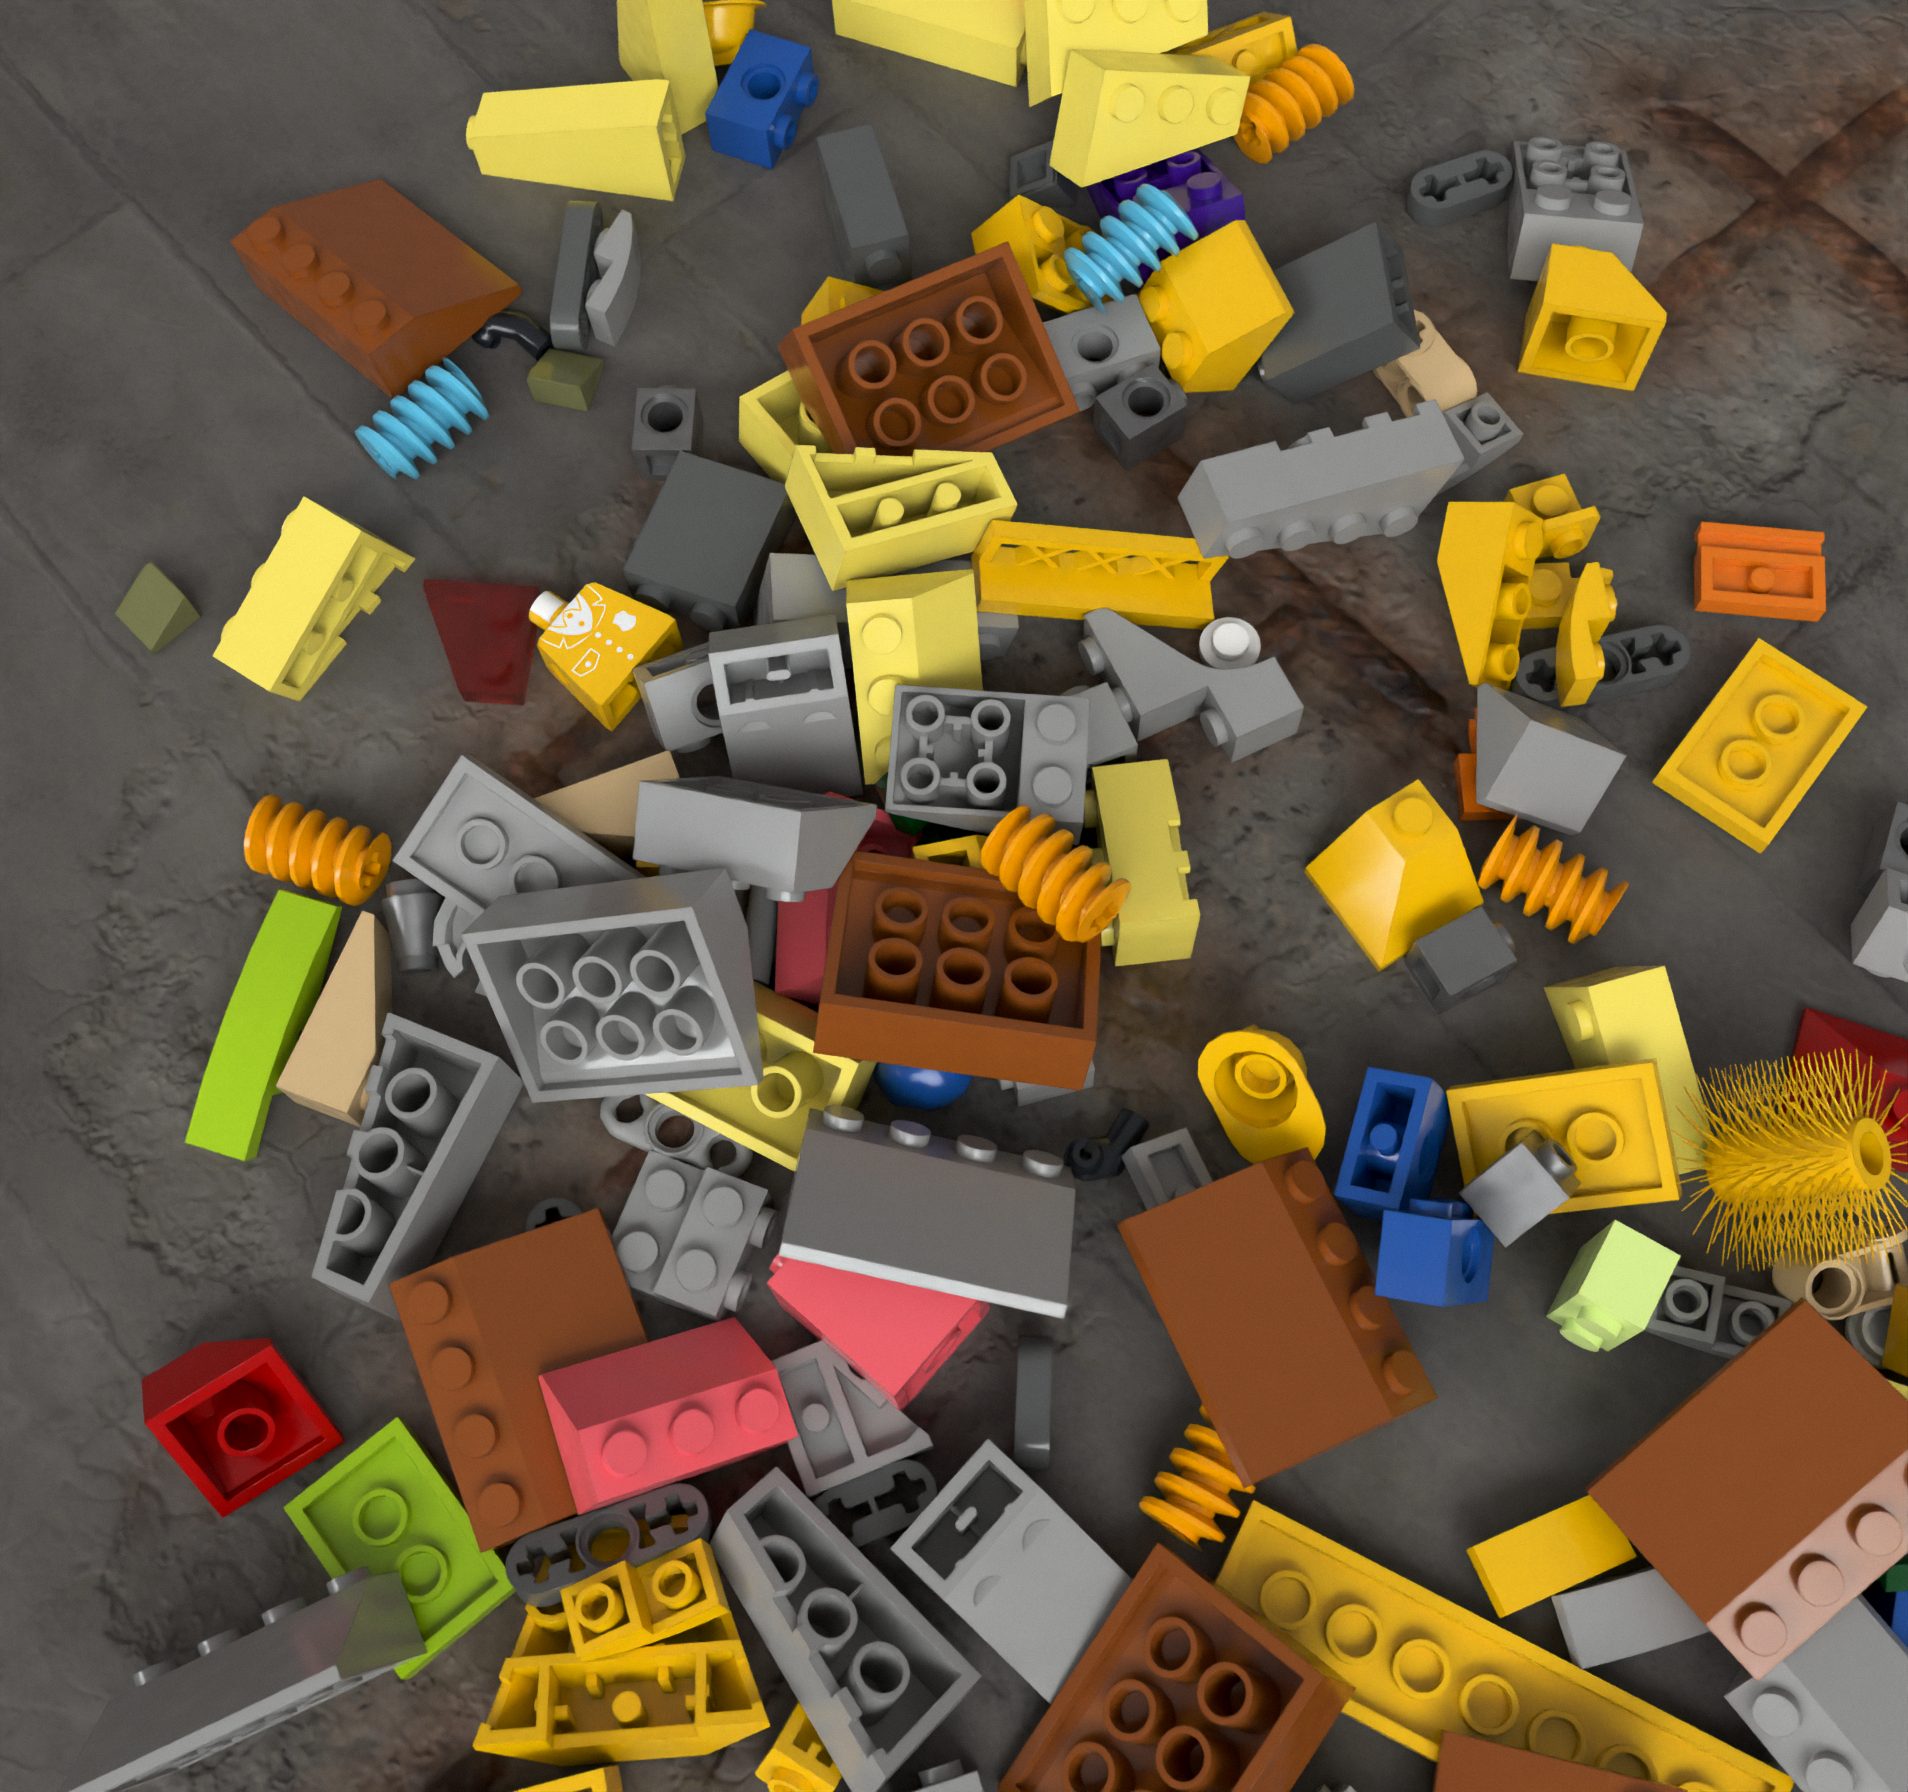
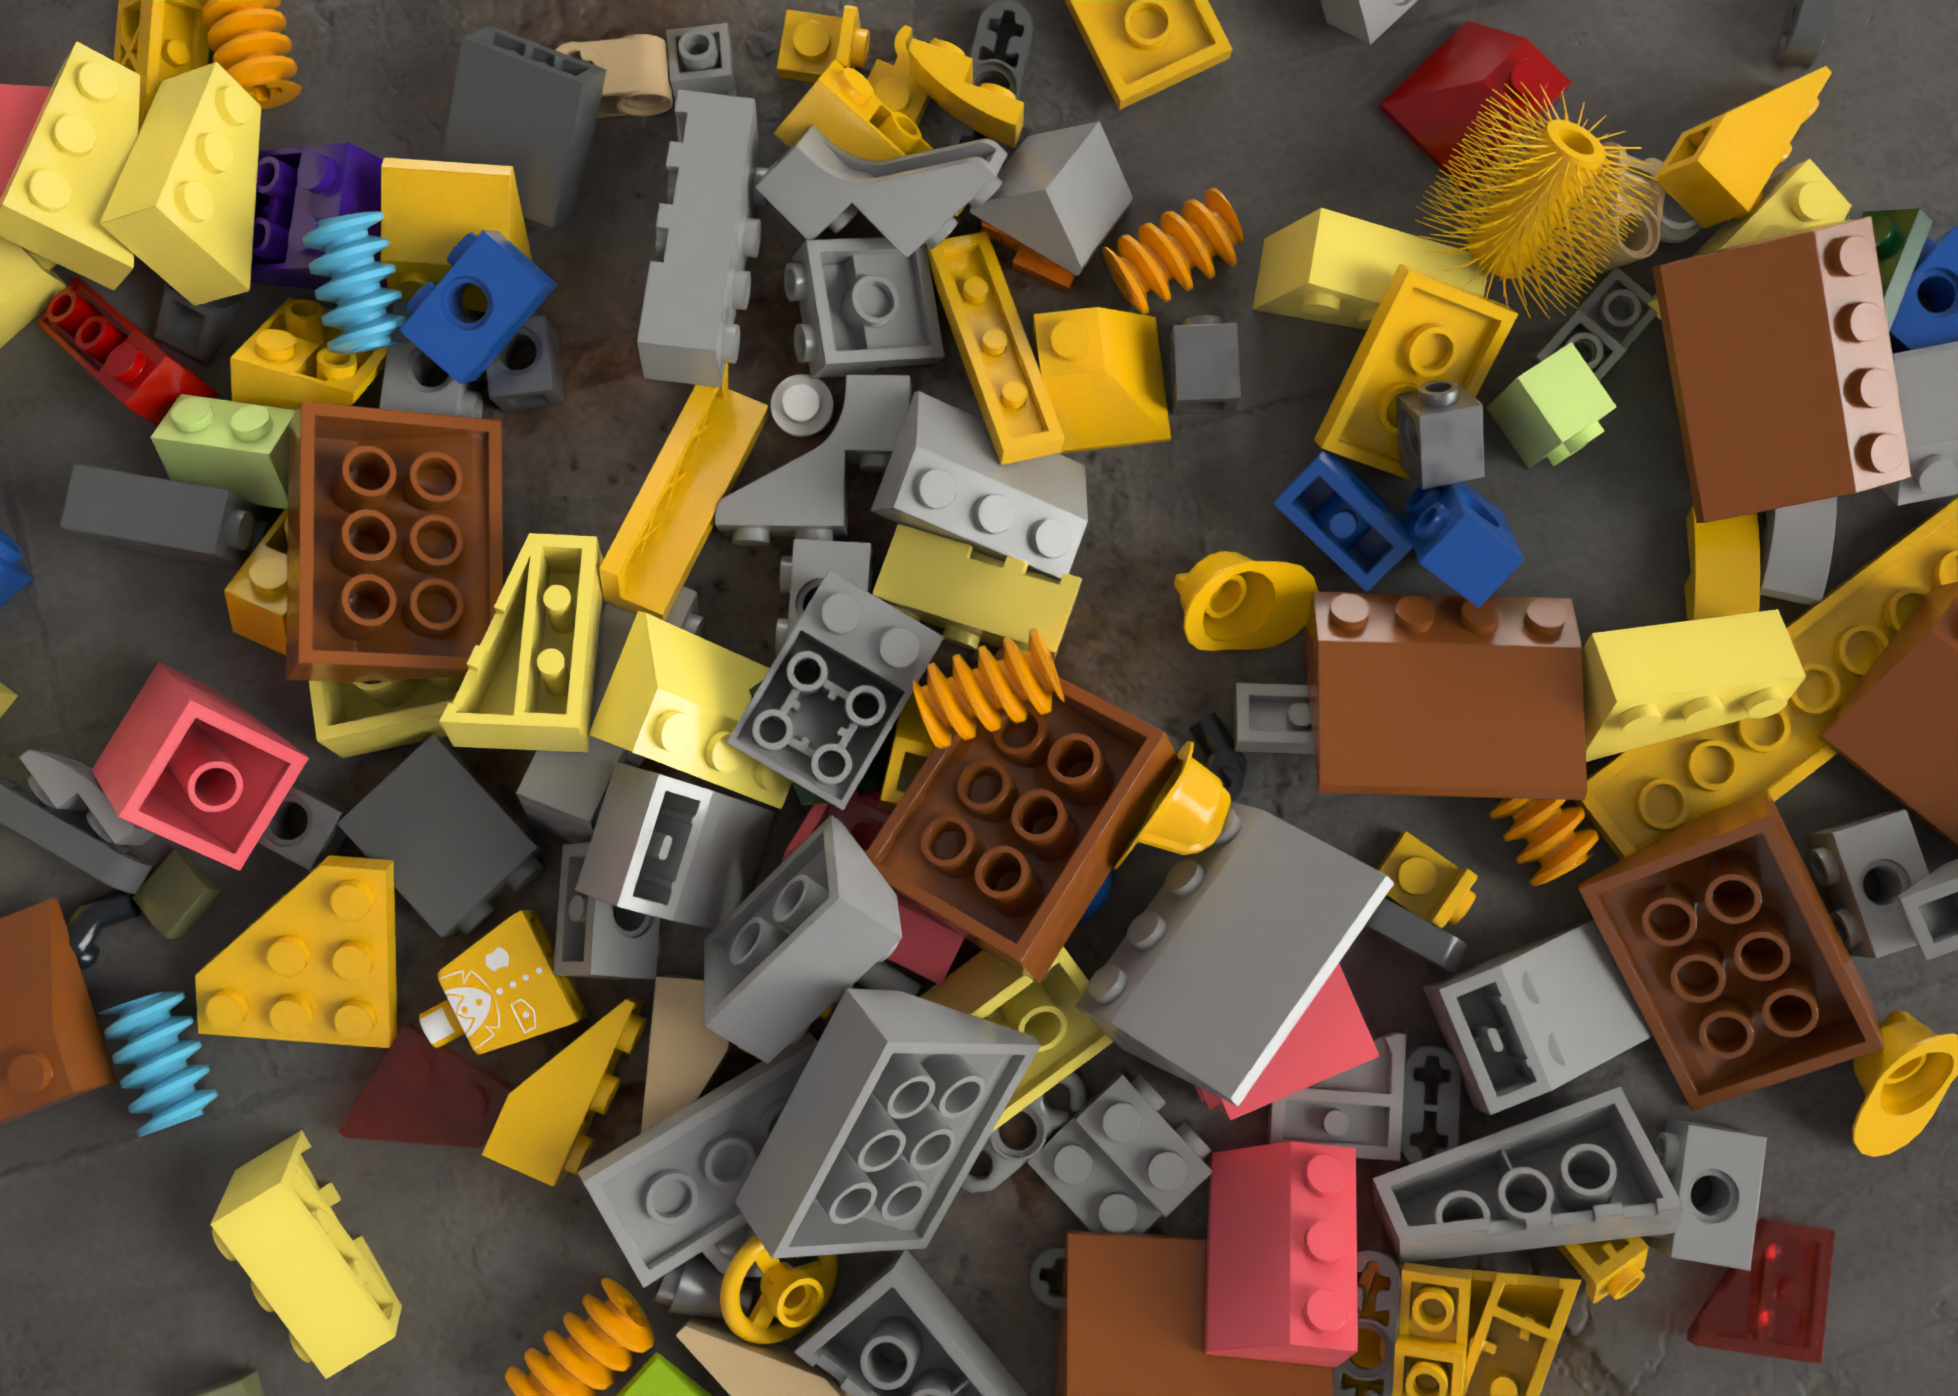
camera: 65 degrees left, 15 degrees up
(426, 1001) = (788, 1293): none -> yellow piece
(534, 734) = (551, 1111): none -> yellow slope
(557, 492) = (312, 963): none -> yellow plate
(674, 331) = (197, 767): none -> coral slope
(944, 223) = (227, 447): none -> yellowish green brick
(979, 145) = (119, 352): none -> red slope
(1030, 1109) = (1186, 811): none -> yellow piece
(1089, 1397) = (1427, 882): none -> yellow bracket
(1185, 363) = (513, 294): none -> blue brick
(1241, 815) = (953, 486): none -> light grey slope
(1346, 650) = (862, 307): none -> light grey plate
(1369, 766) = (995, 349): none -> yellow plate
(1417, 1541) = (1684, 678): none -> light yellow wedge
(1453, 627) = (902, 196): none -> light grey arch

